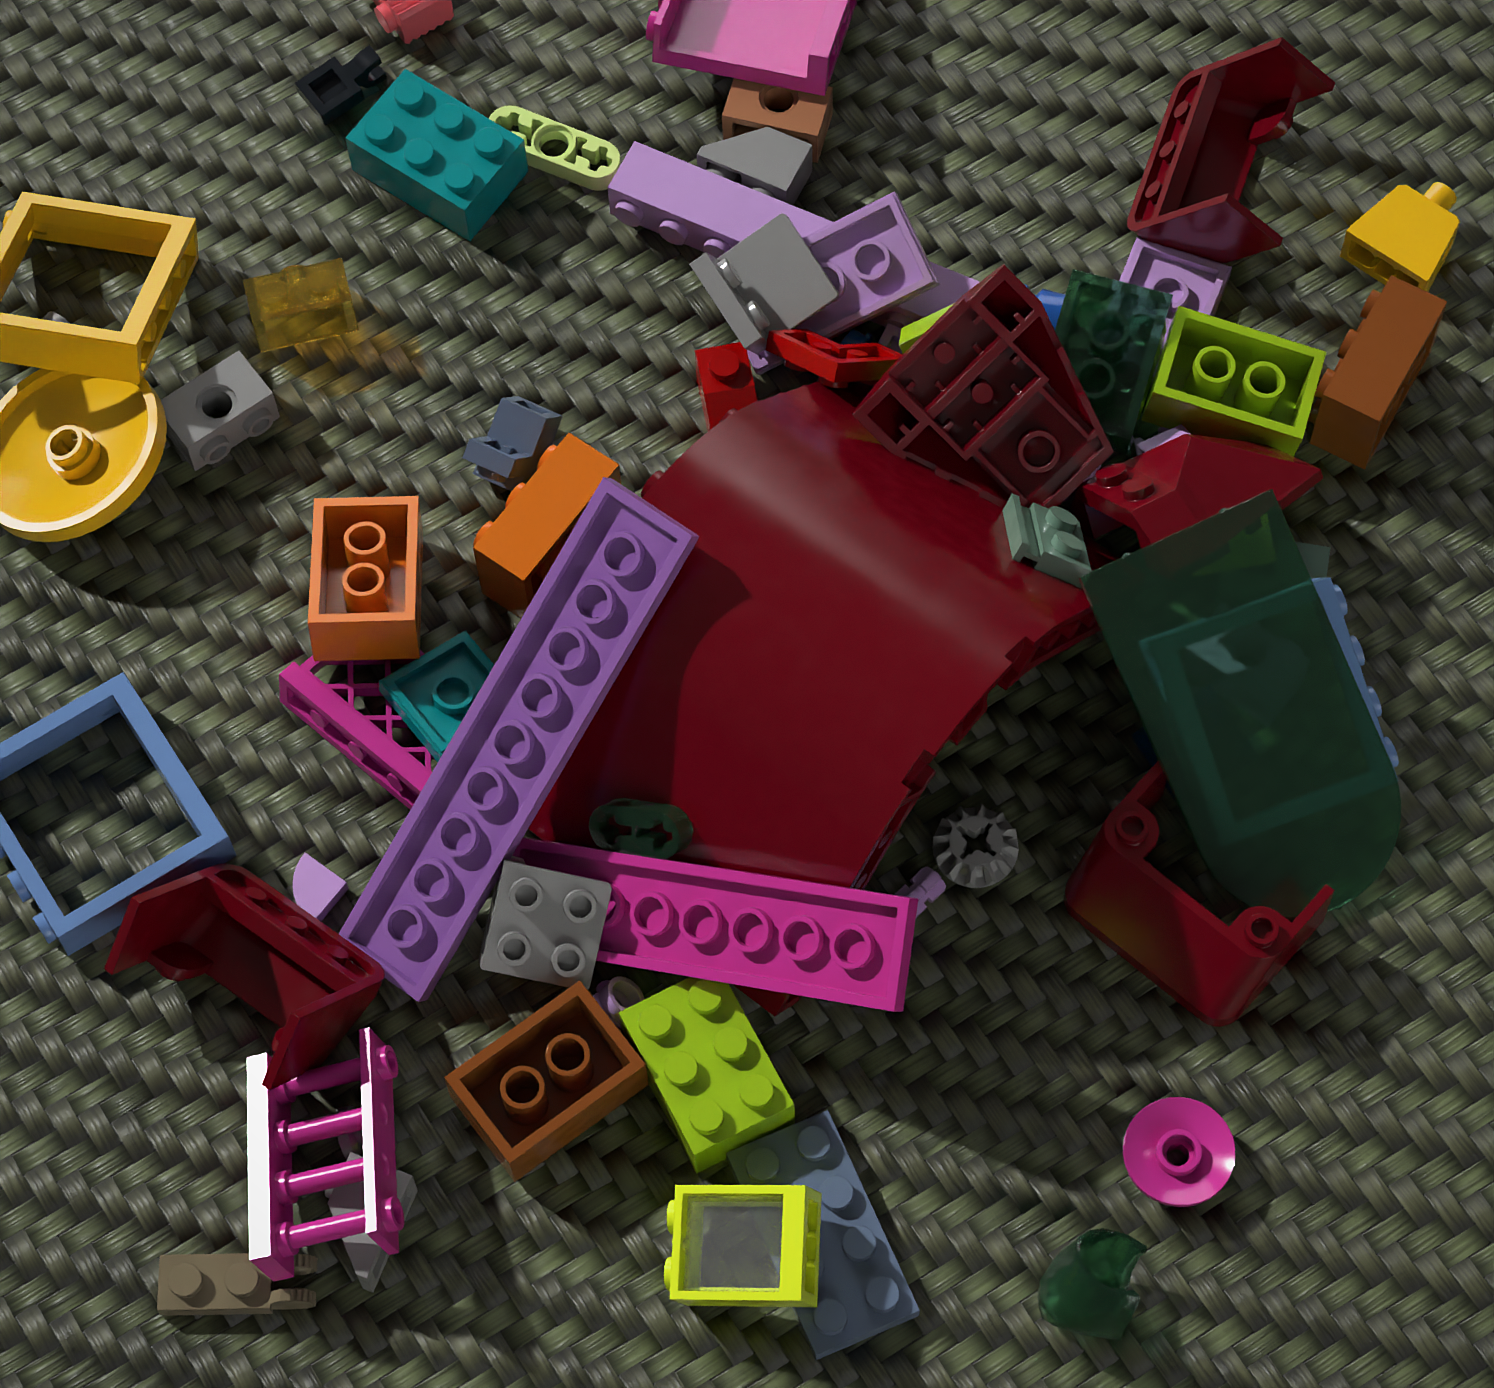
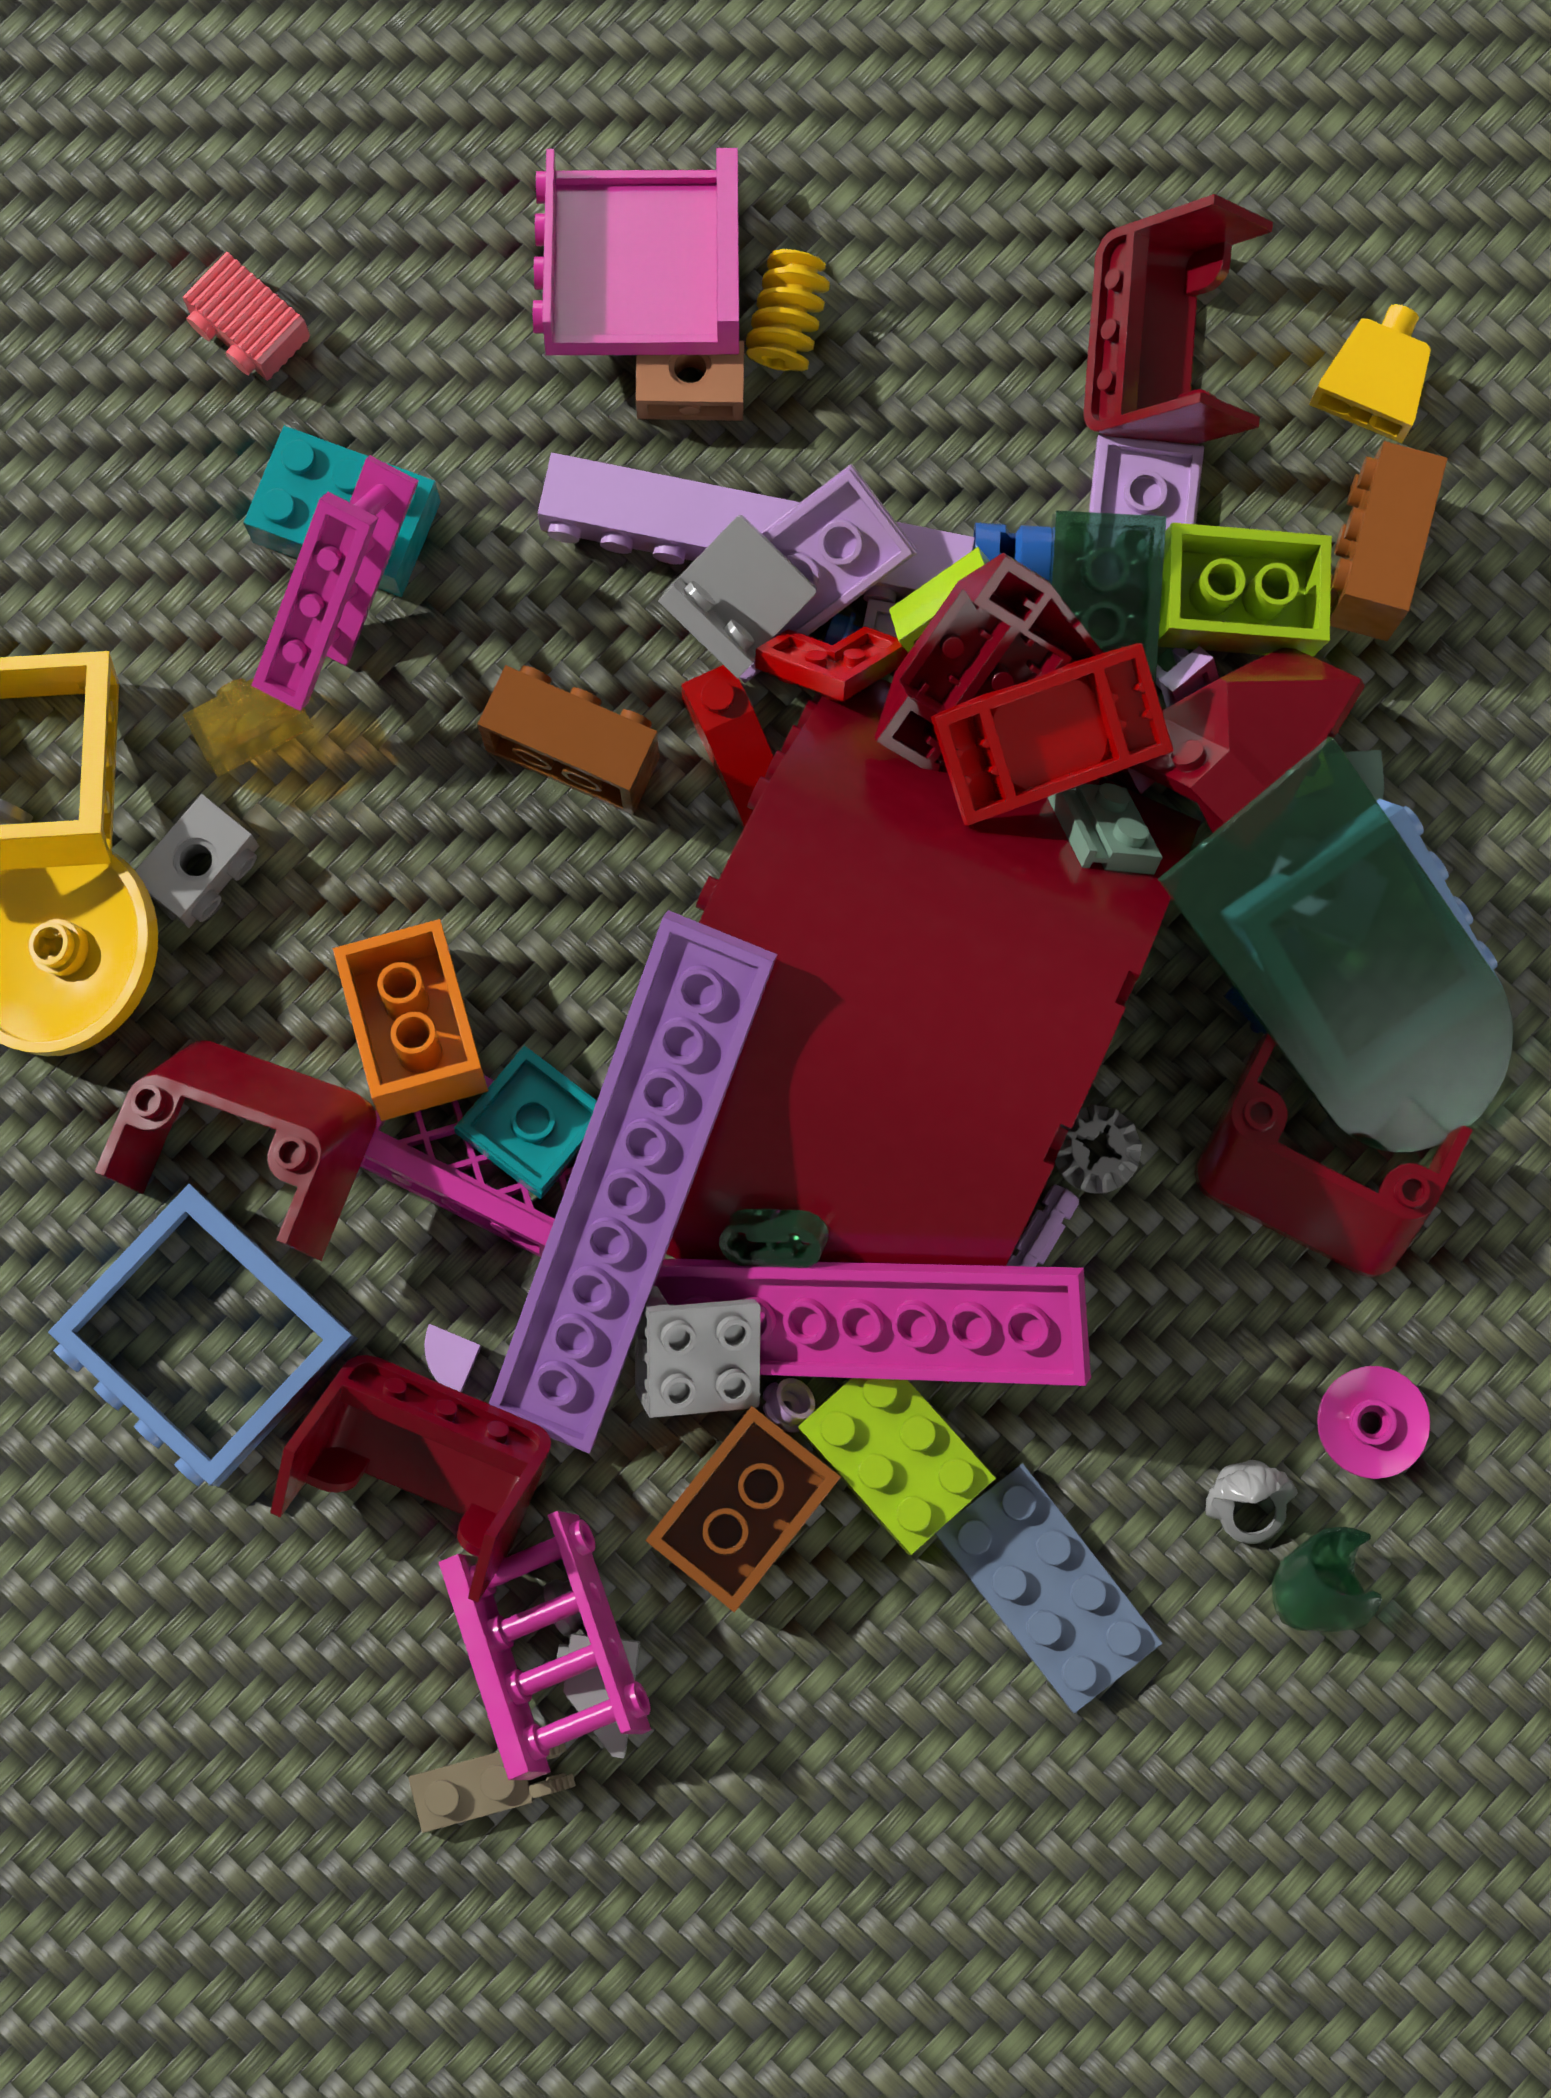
camera: 20 degrees left, 15 degrees up
(240, 643) = (315, 1144): none -> dark red windscreen
(336, 88) = (207, 455): black plate -> none
(406, 189) = (334, 582): none -> dark pink fence
(514, 442) = (517, 826): sand blue brick -> none
(536, 522) = (581, 917): orange brick -> none
(542, 129) = (503, 465): yellowish green beam -> none
(582, 376) = (570, 737): none -> dark orange brick
(744, 1245) = (982, 1631): window -> none
(762, 161) = (688, 445): light grey slope -> none
(880, 75) = (784, 310): none -> yellow piece
(1013, 436) = (1052, 733): none -> red slope
(1041, 1174) = (1249, 1483): none -> light grey piece

